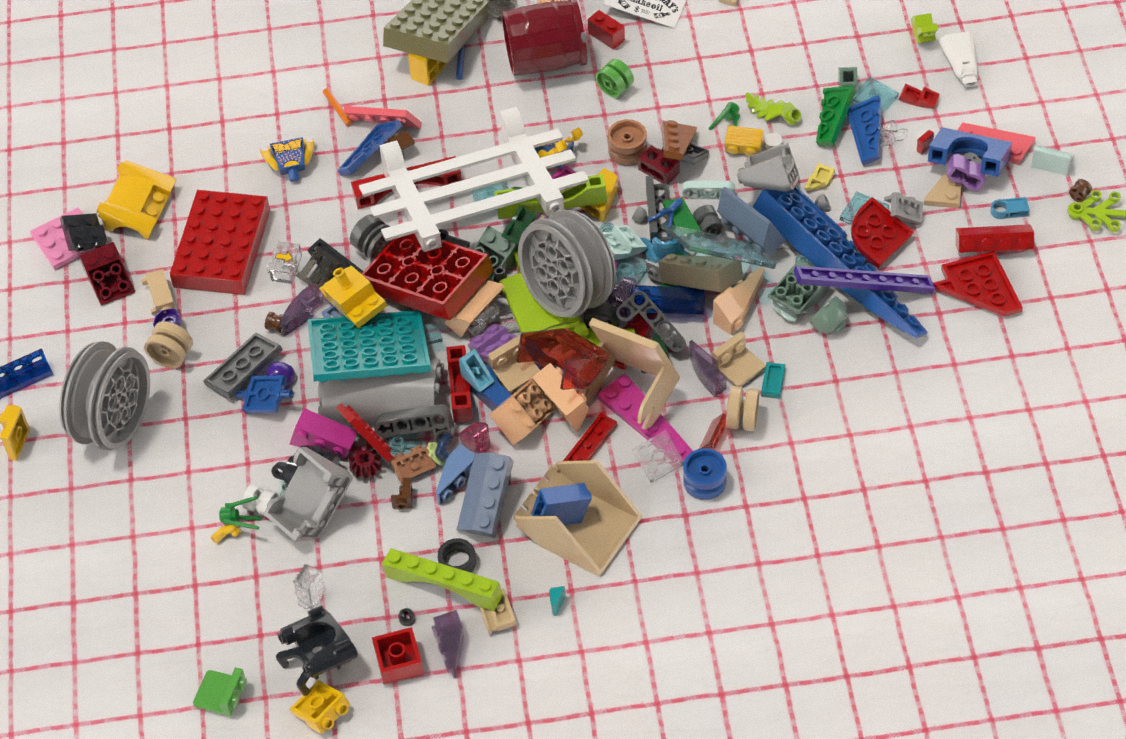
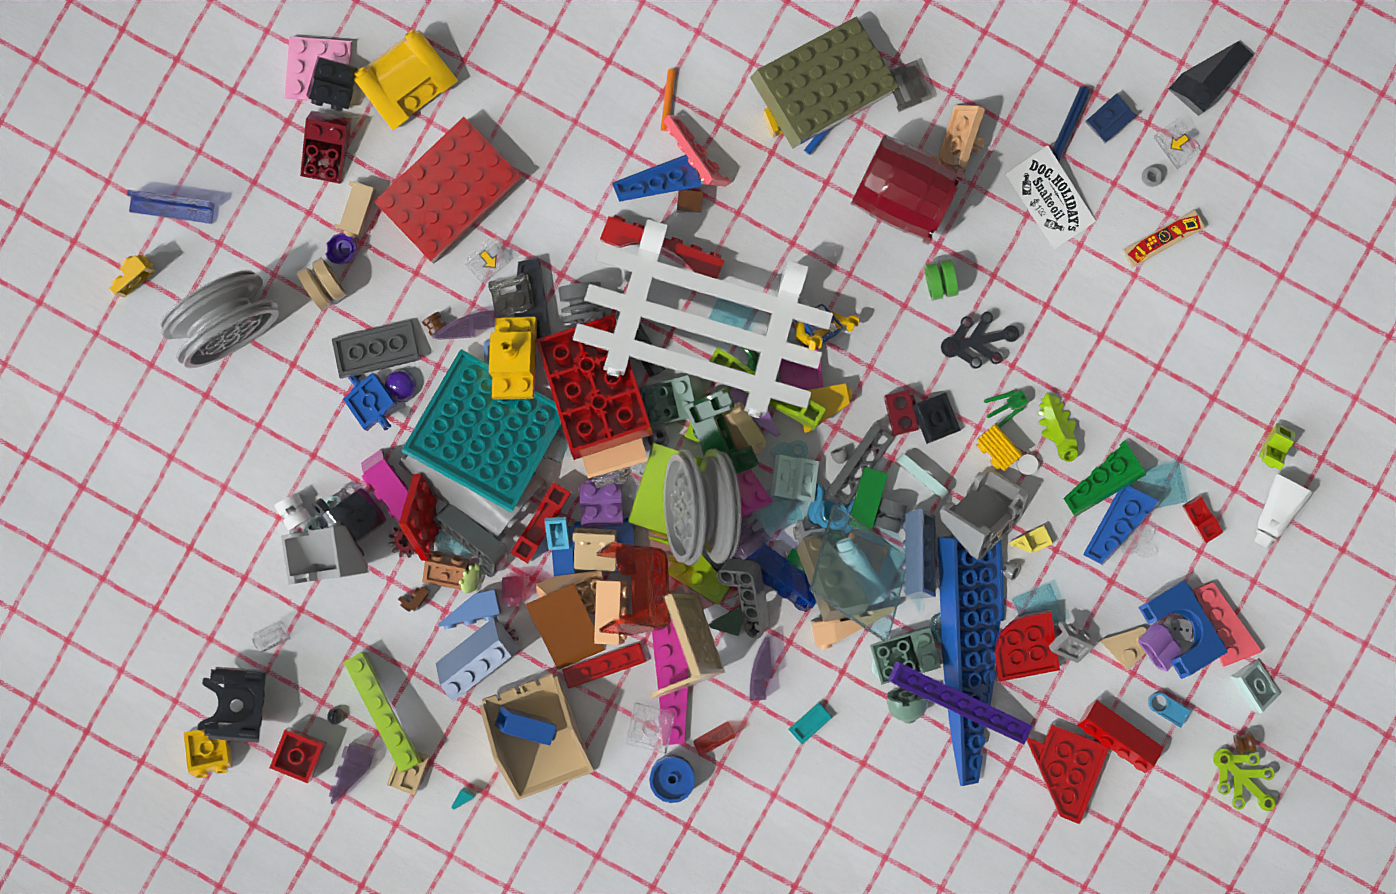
camera: 35 degrees right, 35 degrees up
(220, 691) = (140, 673): bright green bracket -> none
(223, 531) = (248, 516): yellow arm -> none
(229, 515) = (260, 506): green plant -> none
(289, 156) = (577, 136): torso -> none
(442, 444) = (472, 585): dark blue arm -> none
(458, 544) = (398, 694): black tyre -> none
(534, 426) = (564, 626): none -> dark orange sticker
(606, 29) = (984, 207): red brick -> none
(626, 141) = (903, 371): nougat wheel -> none
(659, 112) = (976, 340): none -> black plant
(670, 210) = (859, 487): blue plant -> none
(676, 138) = (936, 402): dark orange wing -> none
(737, 361) = (793, 686): tan bracket -> none
(740, 408) = (751, 740): tan wheel -> none
(847, 76) = (1155, 449): sand green brick -> none
(924, 141) = (1159, 578): red tile -> none

